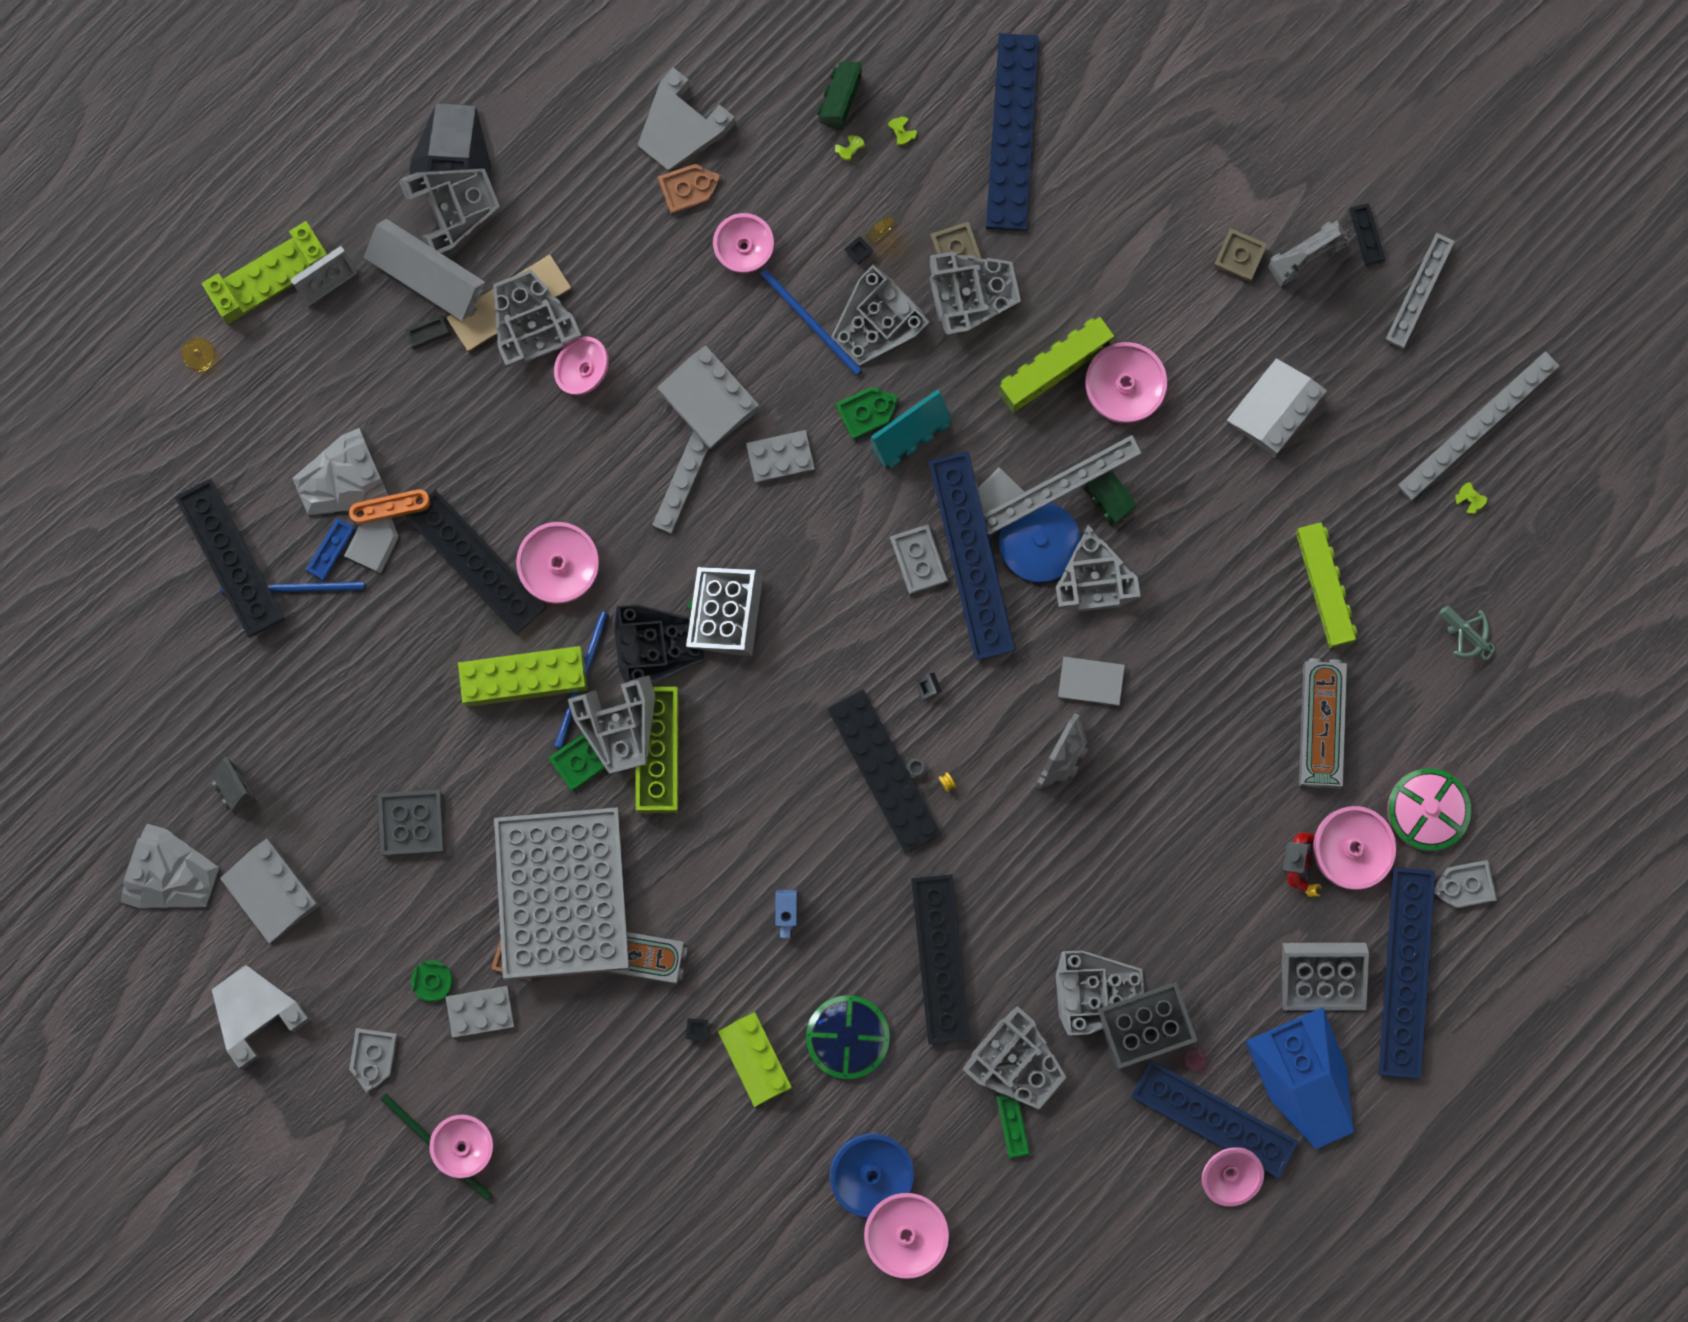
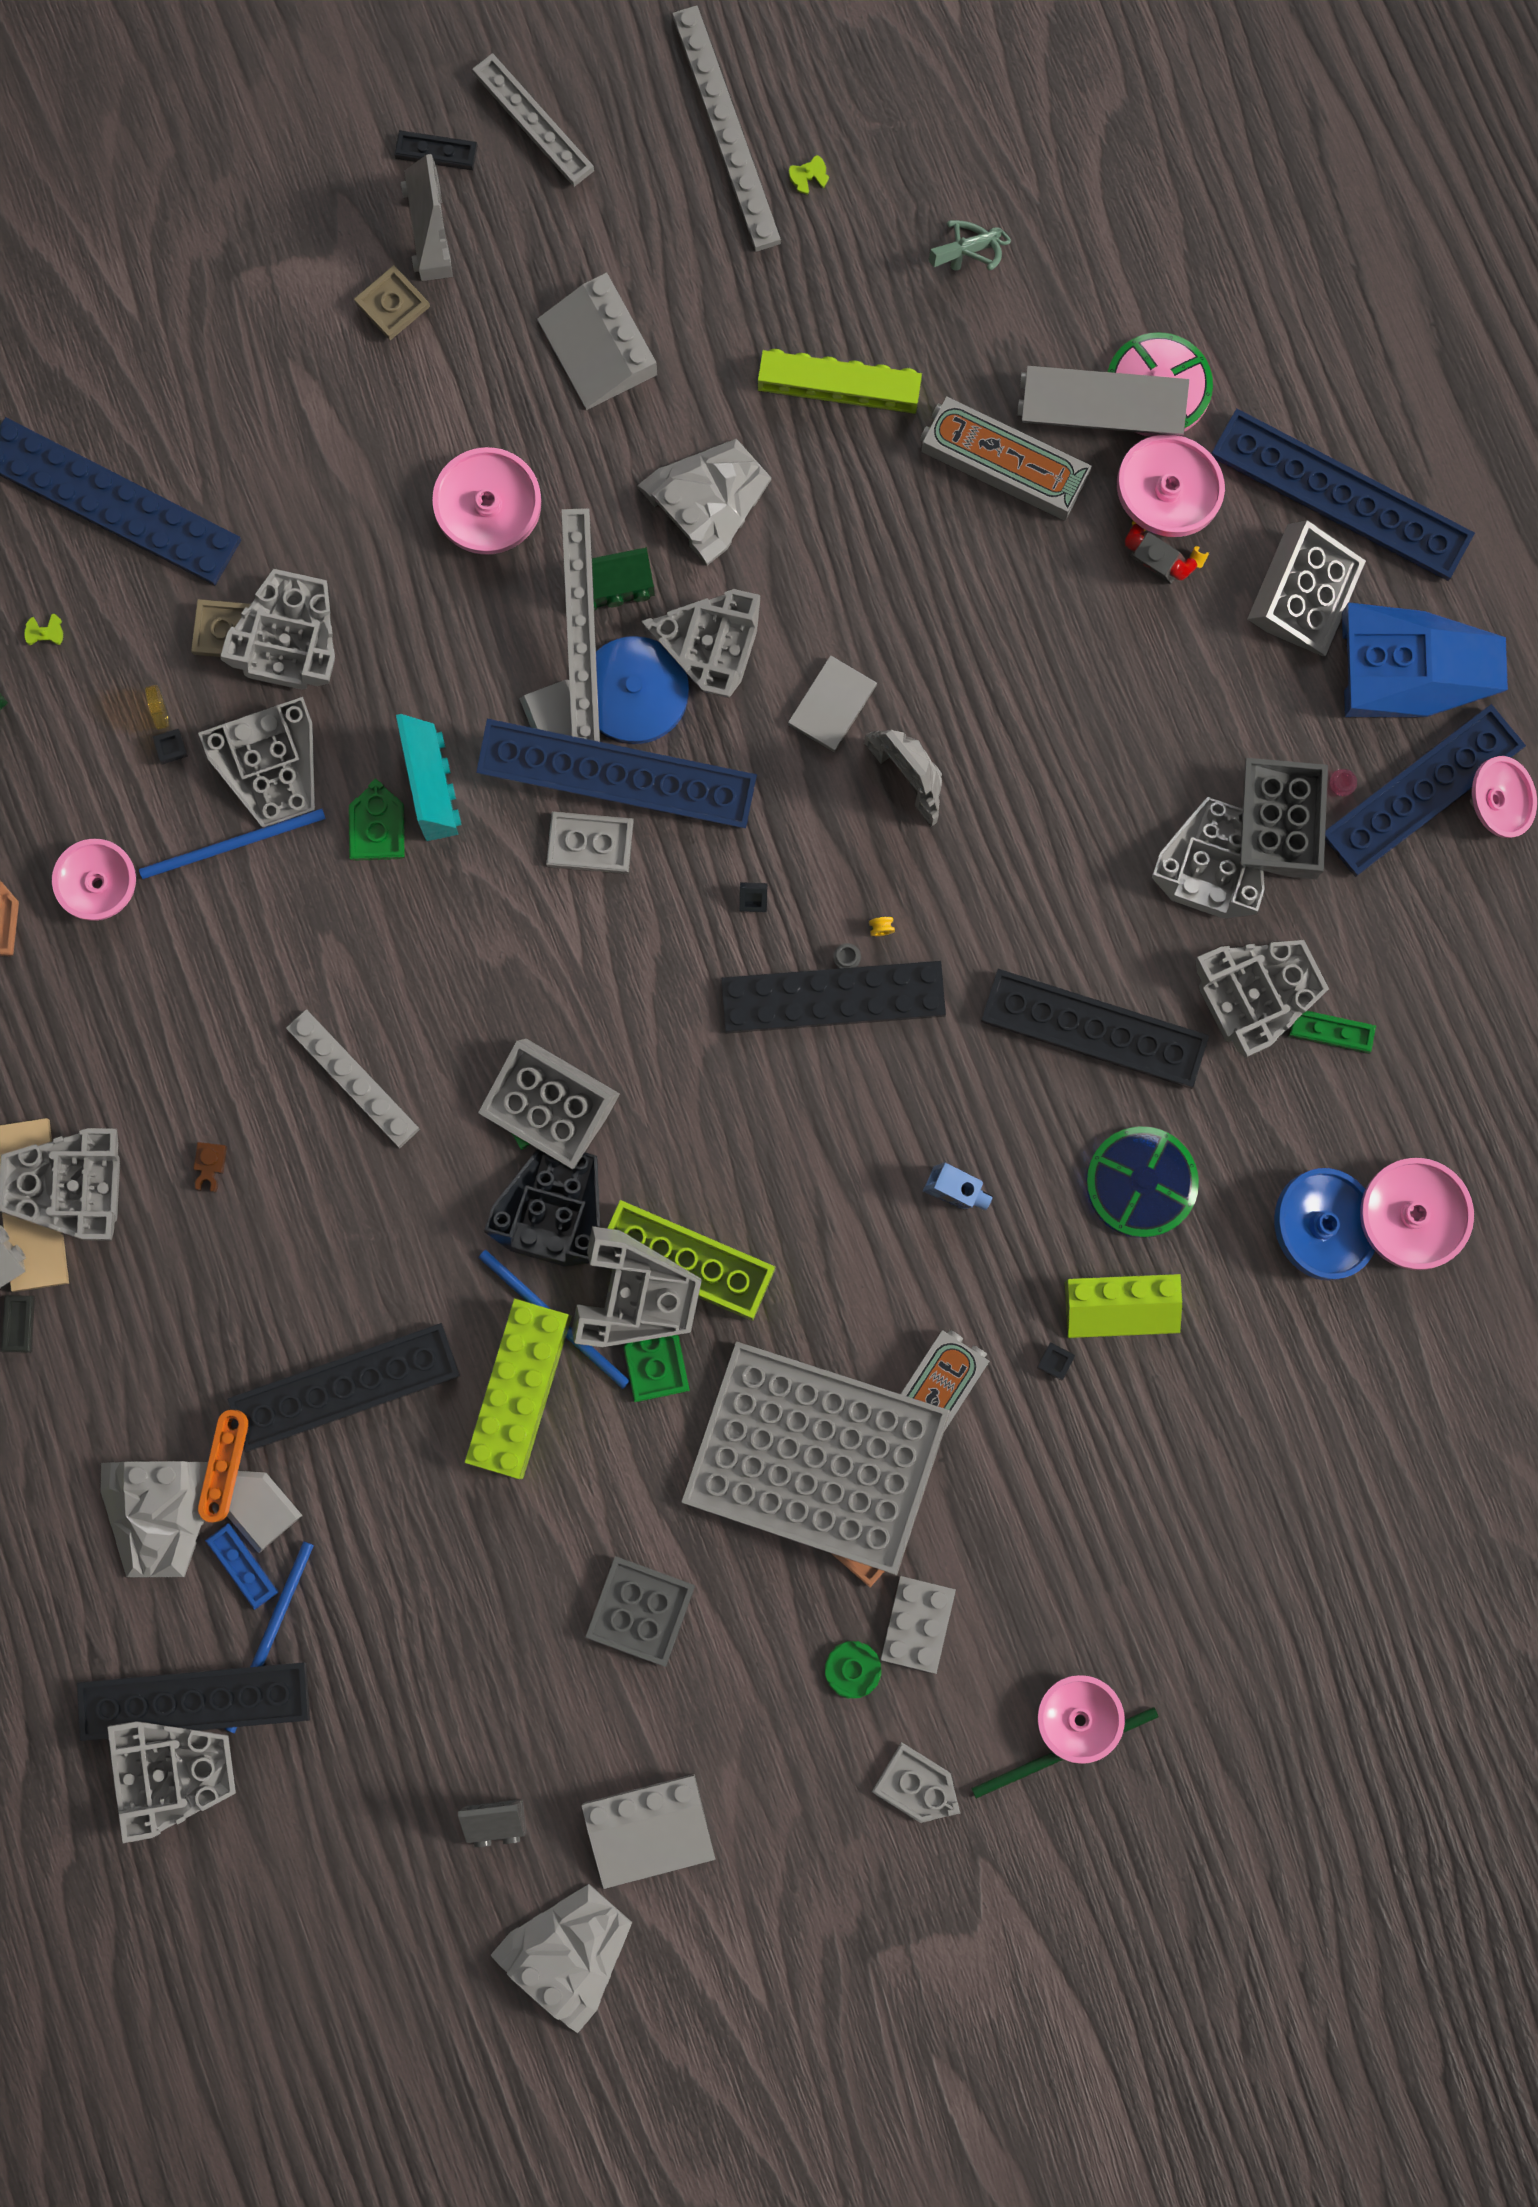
camera: 70 degrees left, 0 degrees up
(175, 562) = (166, 1775): none -> light grey wedge
(248, 1004) = (783, 1920): light grey wedge -> none
(557, 562) = (393, 1283): bright pink dish -> none
(576, 360) = (144, 1152): bright pink dish -> none
(589, 406) = (209, 1160): none -> reddish brown plate
(708, 397) = (269, 1006): light grey slope -> none
(780, 456) = (384, 953): light grey plate -> none
(846, 153) = (33, 692): lime piece -> none
(1055, 365) = (425, 572): lime brick -> none
(1202, 531) = (708, 495): none -> light grey wedge
(1394, 775) = (1104, 400): none -> light grey brick
(1466, 885) = (1266, 381): light grey tile -> none

